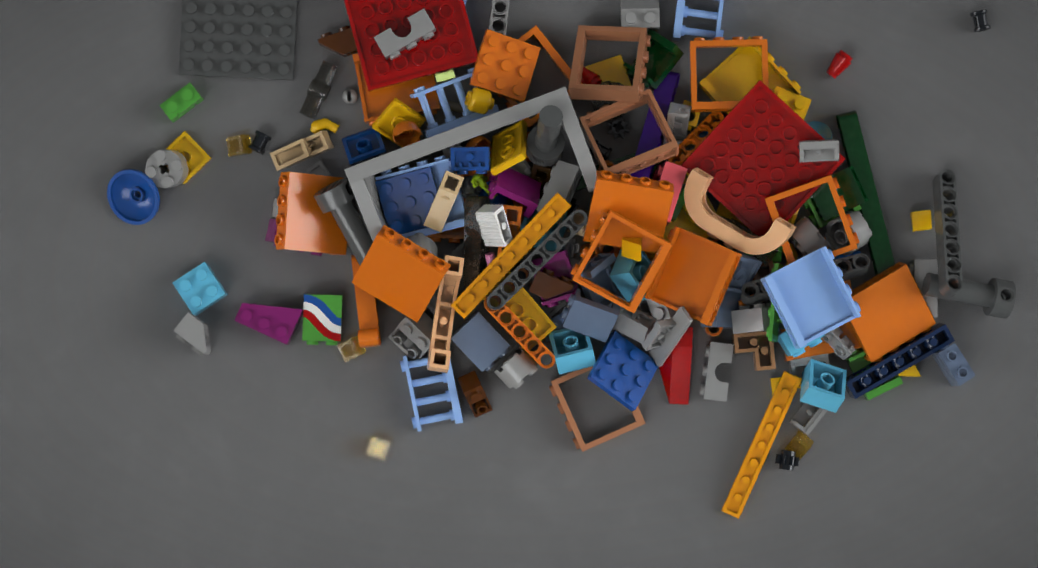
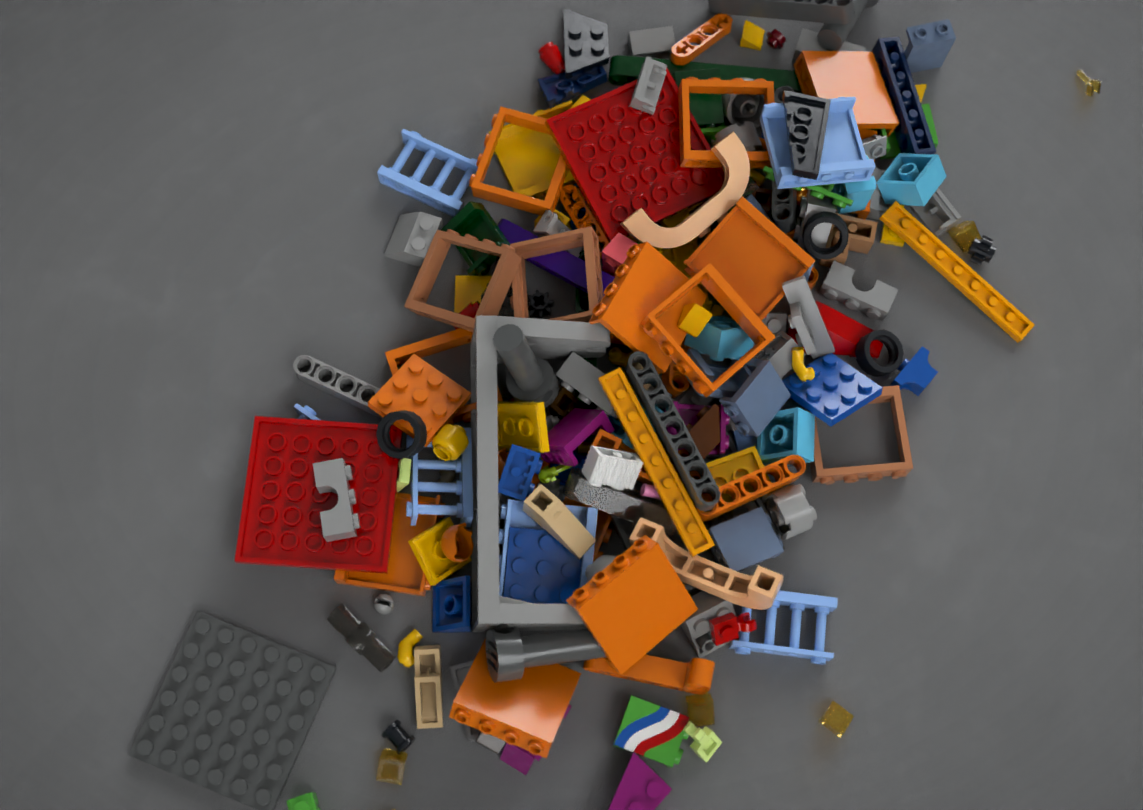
camera: 75 degrees left, 15 degrees down
(327, 358) = (704, 742): none -> yellowish green plate
(340, 42) = (314, 590): reddish brown slope -> none
(413, 348) = (726, 627): none -> red plate
(459, 55) = (383, 436): none -> black tyre
(474, 394) = (804, 573): reddish brown slope -> none
(630, 340) = (798, 365): none -> yellow arm
(663, 434) = (915, 373): none -> blue brick
(669, 416) = (894, 349): none -> black tyre
(753, 327) = (825, 253): none -> black tyre
(813, 284) = (806, 128): none -> black wing
(819, 86) = (558, 89): none -> dark blue wing
(861, 84) = (584, 43): none -> wing
(882, 139) = (651, 41): none -> light grey hinge
(900, 175) = (704, 41): none -> orange beam
(924, 240) = (775, 39): none -> dark red plate
(977, 514) = (1092, 84): none -> clear yellow hand

